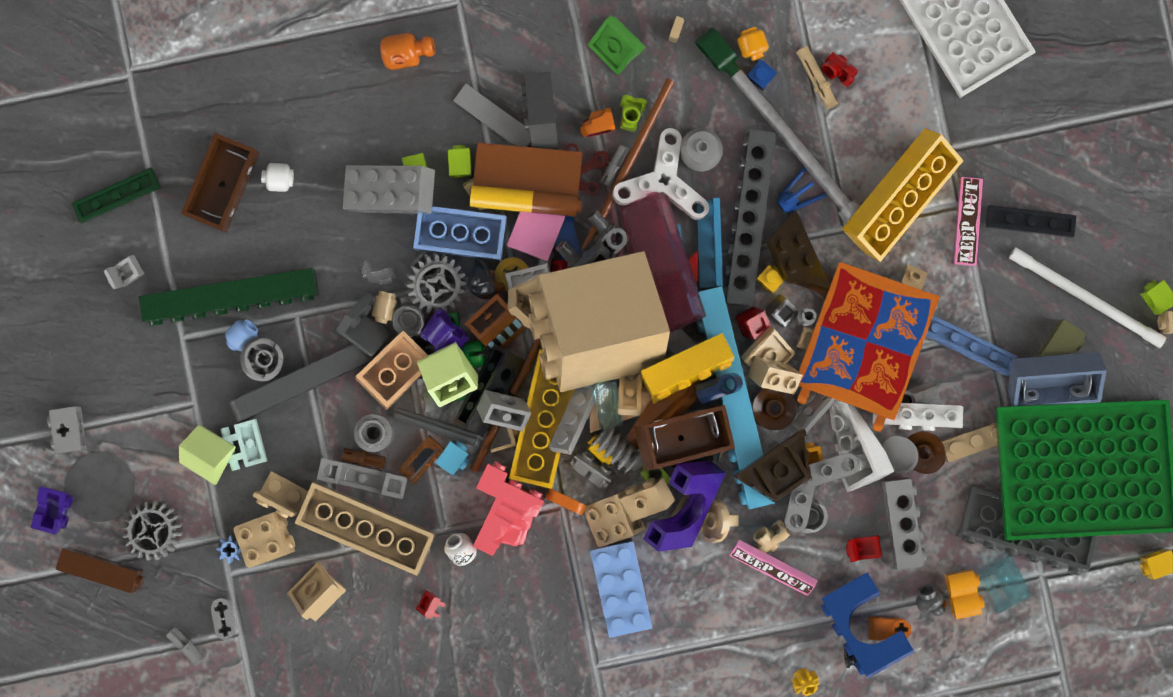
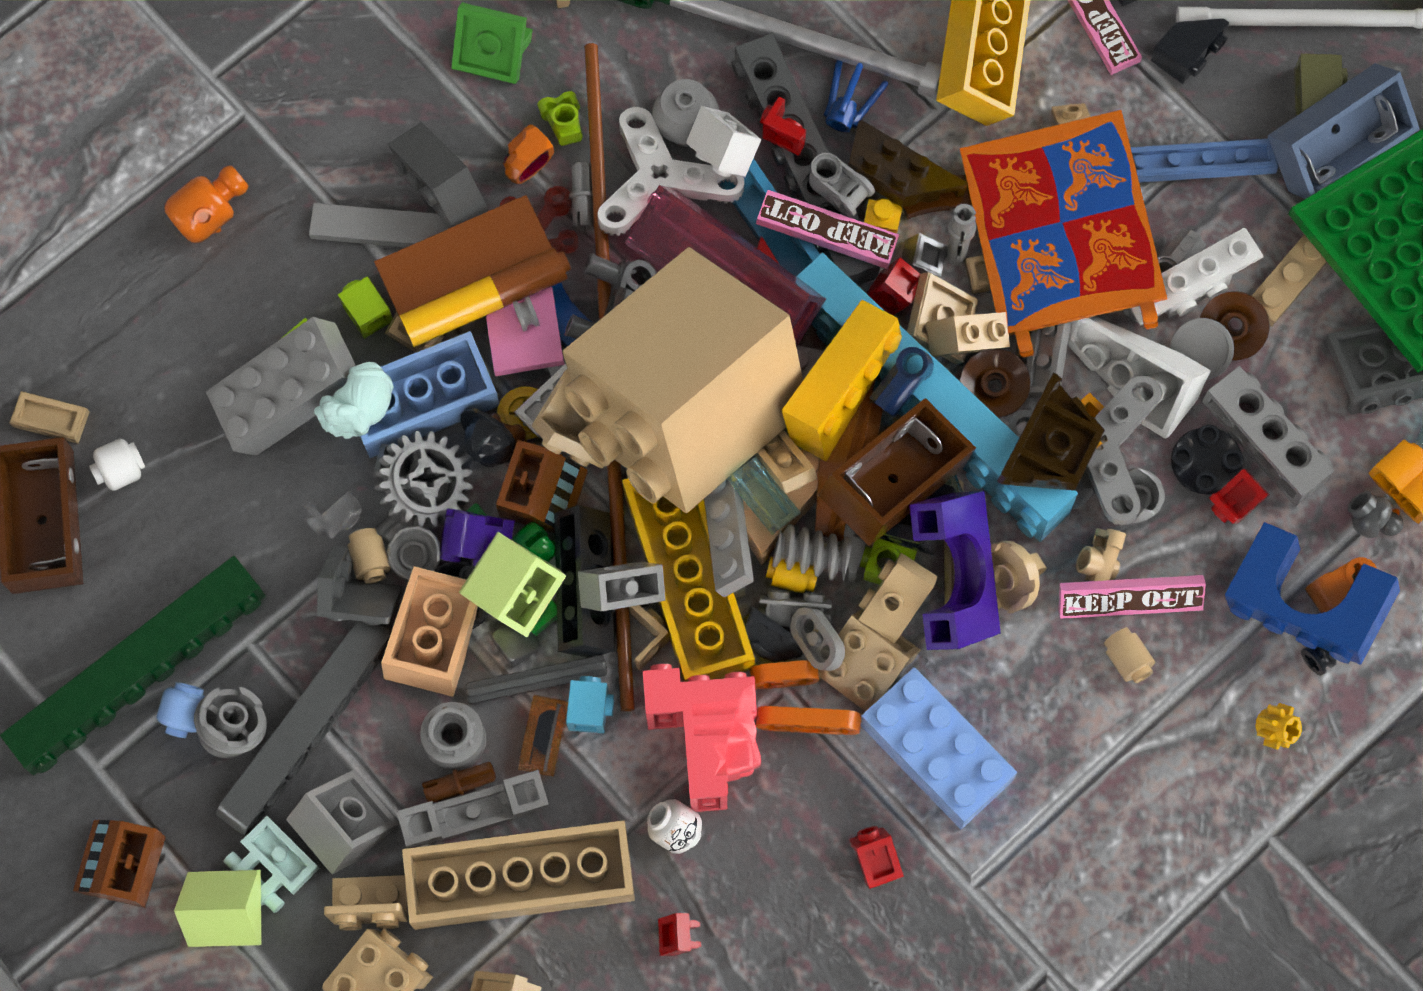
camera: 30 degrees left, 15 degrees down
(165, 399) = (120, 862): none -> dark orange slope
(256, 125) = (49, 417): none -> tan tile
(292, 444) = (341, 821): none -> light grey slope
(420, 228) = (358, 403): none -> light aqua hair
(541, 224) = (526, 313): none -> light grey bush
(555, 624) = (876, 856): none -> red bracket
(562, 533) = (808, 720): none -> orange beam
(570, 479) = (770, 638): none -> black plate
(592, 495) = (820, 645): none -> light grey plate
(708, 185) = (723, 142): none -> white brick
(734, 270) = (827, 229): none -> tile
(745, 200) = (782, 132): none -> red bracket
(752, 598) = (1129, 655): none -> tan brick
(757, 250) = (844, 189): none -> light grey piece
(861, 516) = (1206, 459): none -> black dish
(1005, 274) = (1187, 45): none -> black slope

